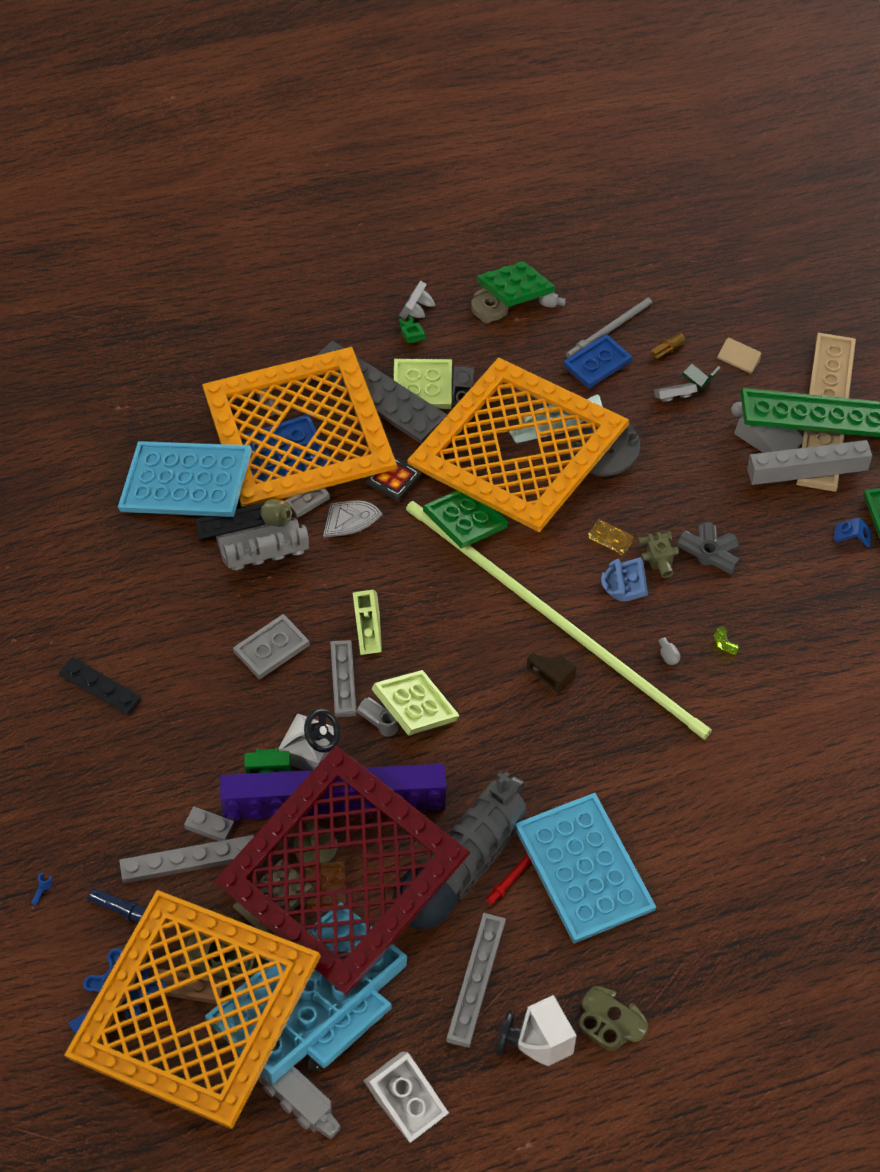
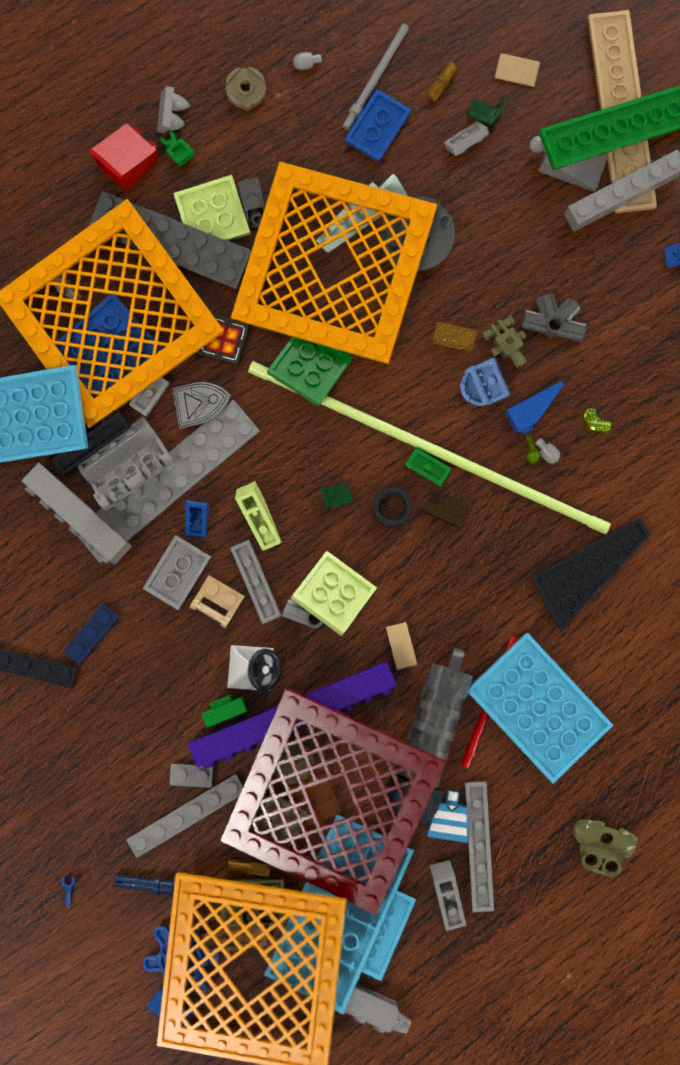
camera: 15 degrees left, 30 degrees up
(167, 674) = (91, 634): none -> dark blue plate
(199, 567) = (76, 513): none -> light grey brick
(276, 512) = (127, 428): olive head -> none
(293, 573) = (193, 460): none -> light grey plate
(304, 678) = (222, 596): none -> tan plate
(310, 605) = (196, 518): none -> blue slope
(362, 321) = (125, 156): none -> slope
(406, 1096) = (454, 974): white slope -> none
(426, 1017) = (448, 895): none -> light grey slope
(448, 628) = (336, 495): none -> dark green bracket
(453, 943) = (450, 820): none -> torso
(464, 773) = (401, 646): none -> tan slope
(499, 639) = (407, 507): none -> black tyre
(515, 284) = (264, 55): green plate -> none
(544, 1034) = (554, 886): white piece -> none
(547, 631) = (428, 467): none -> green plate
(653, 652) = (534, 454): none -> clear neon green hand
(661, 613) = (527, 413): none -> blue slope
(664, 766) = (579, 577): none -> black wing

